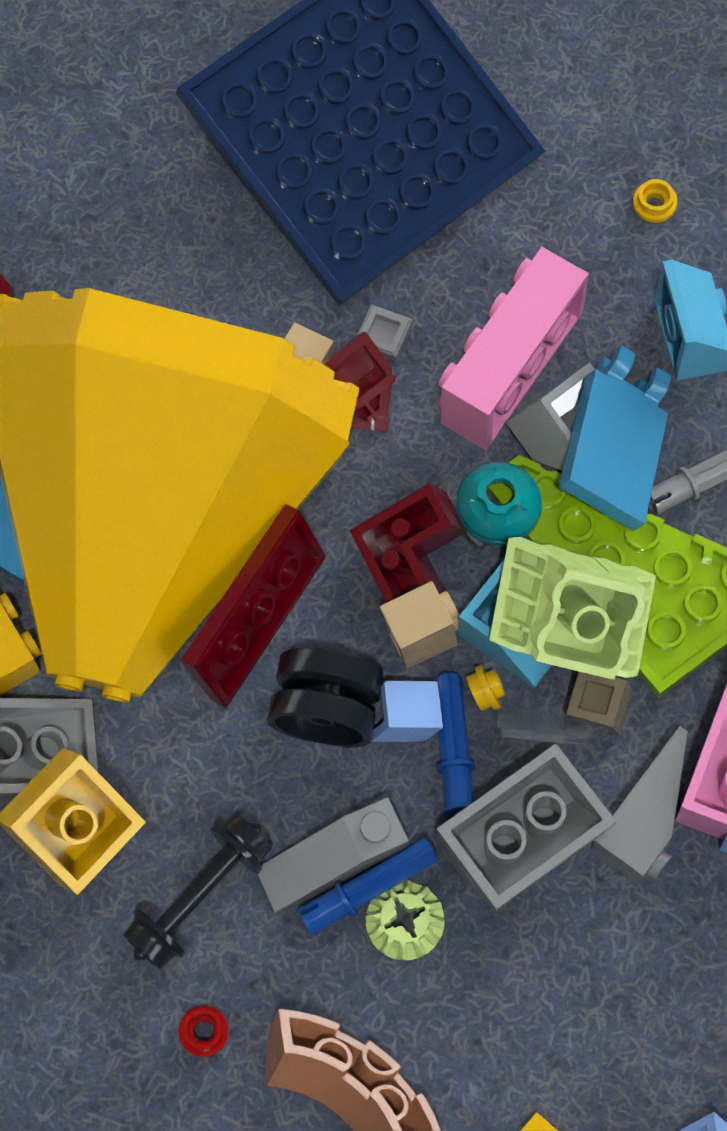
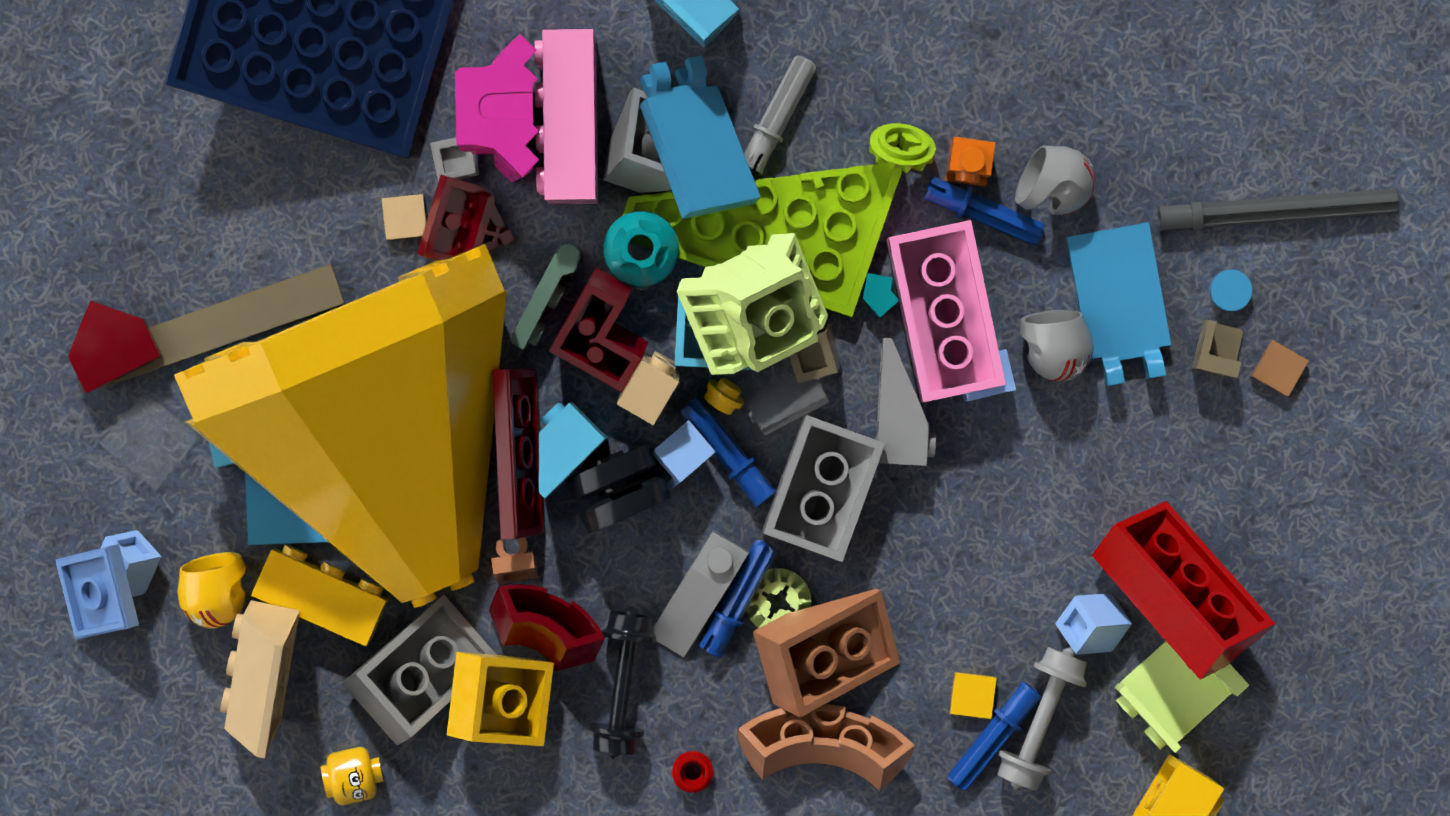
camera: 40 degrees left, 20 degrees up
(165, 784) = (545, 623): none -> dark red brick
(175, 713) = (516, 566): none -> nougat tile
(301, 617) = (565, 445): none -> medium azure slope
(380, 492) = (546, 295): none -> sand green hinge
(421, 995) = (826, 650): none -> nougat slope
(452, 296) = (497, 110): none -> dark pink slope
(700, 691) = (878, 293): none -> teal piece

